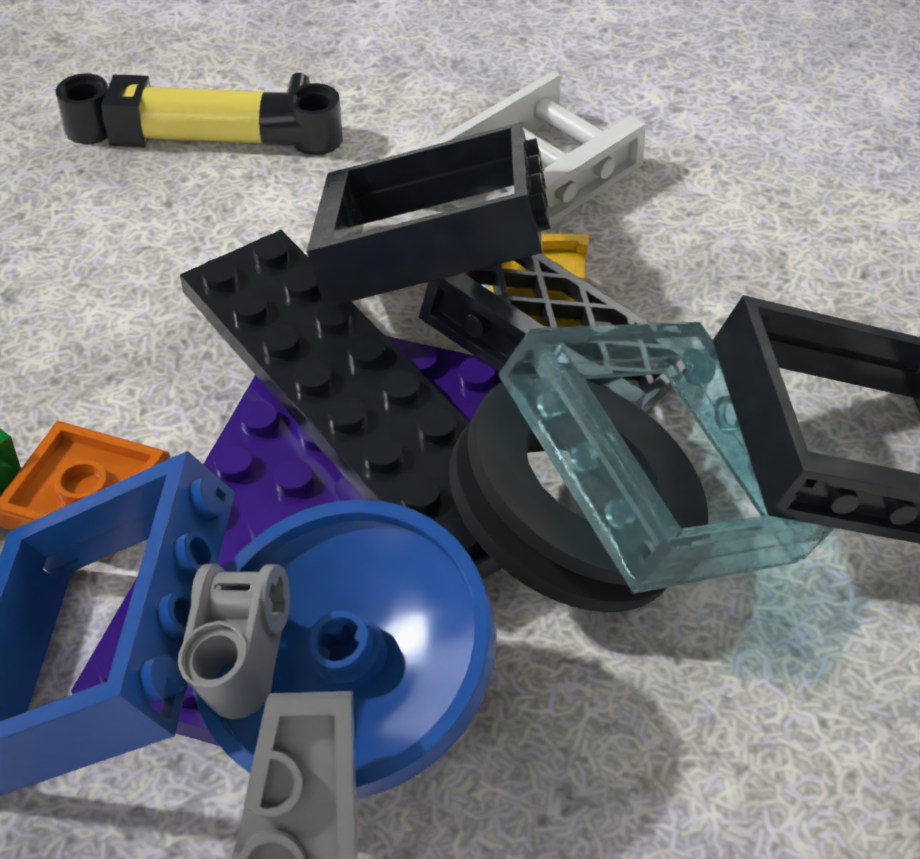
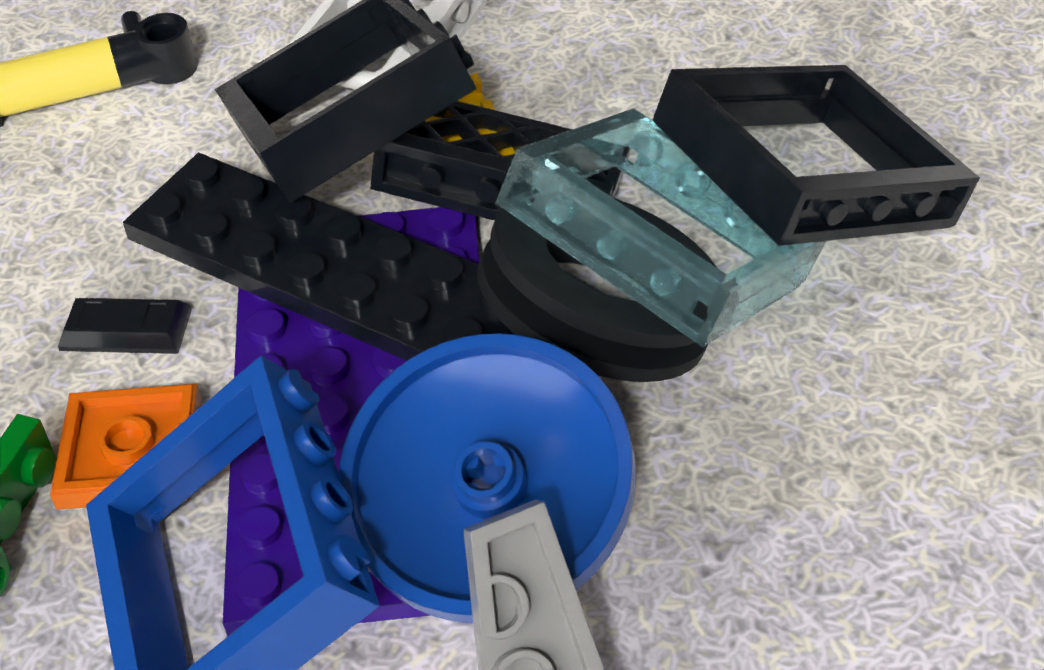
camera: 20 degrees left, 0 degrees up
(144, 373) = (125, 326): none -> black tile
(237, 622) = (389, 487): light grey piece -> none

